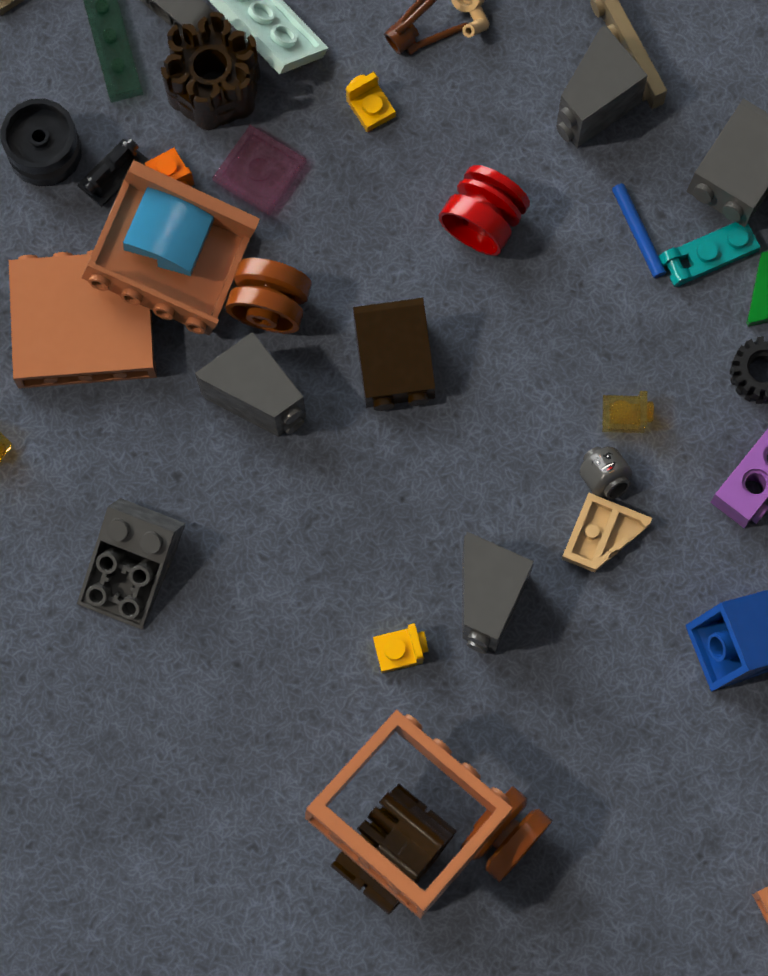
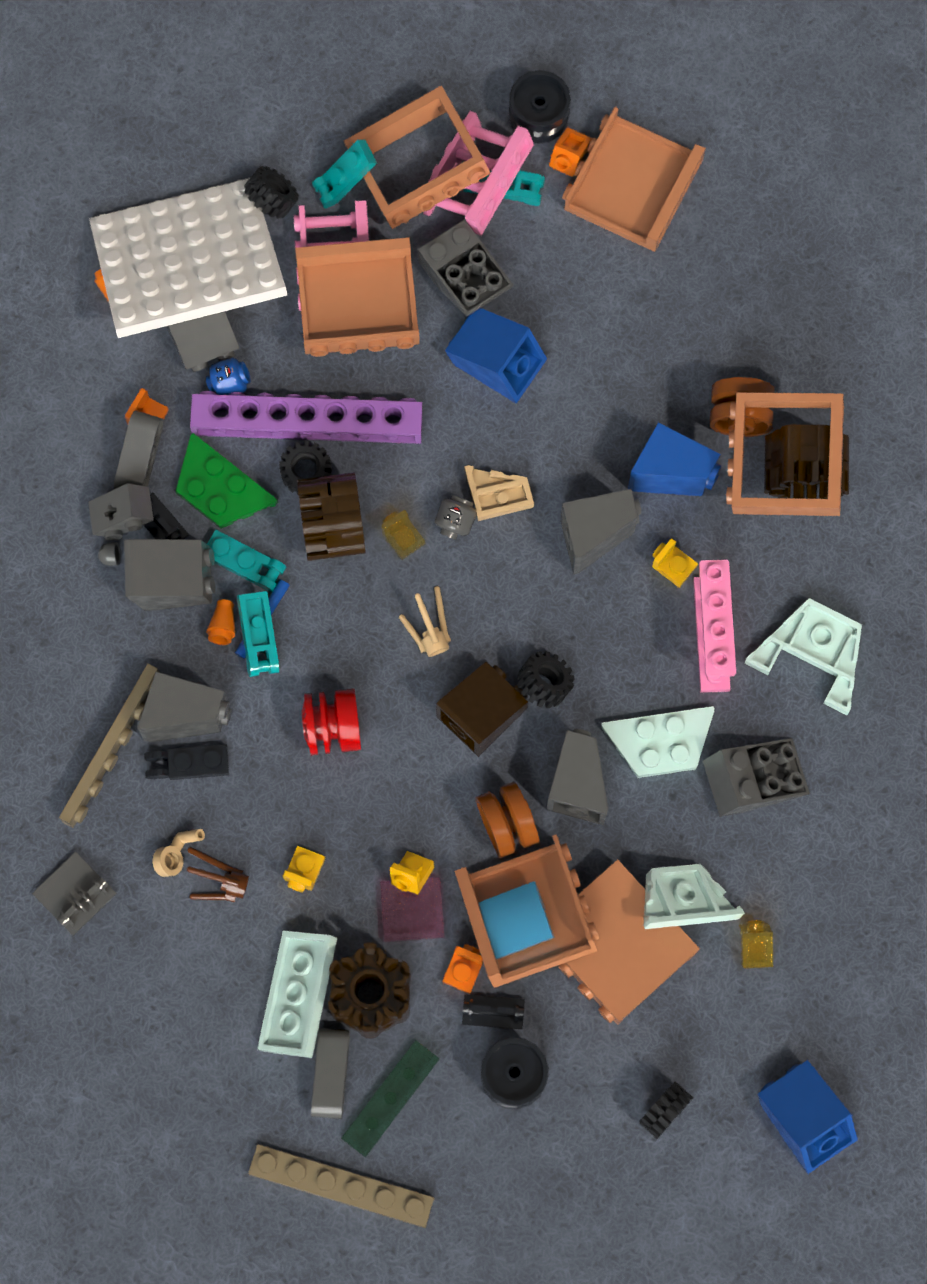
camera: 130 degrees left, 0 degrees up
(70, 401) = (685, 898): none -> light aqua wing
(213, 730) = (820, 639): none -> light aqua wing
(235, 503) = (661, 741): none -> light aqua wing
(290, 186) = (411, 872): none -> yellow bracket
(300, 623) = (714, 626): none -> bright pink fence
(375, 452) = (540, 690): none -> black tyre
(497, 365) = (433, 640): none -> tan plant
(498, 716) = (674, 465): none -> blue slope
(546, 76) = (190, 762): none -> black hinge
(625, 209) = (258, 632): none -> teal plate
(659, 189) = (222, 625): none -> orange cone
(686, 353) = (331, 516): none -> dark brown piece

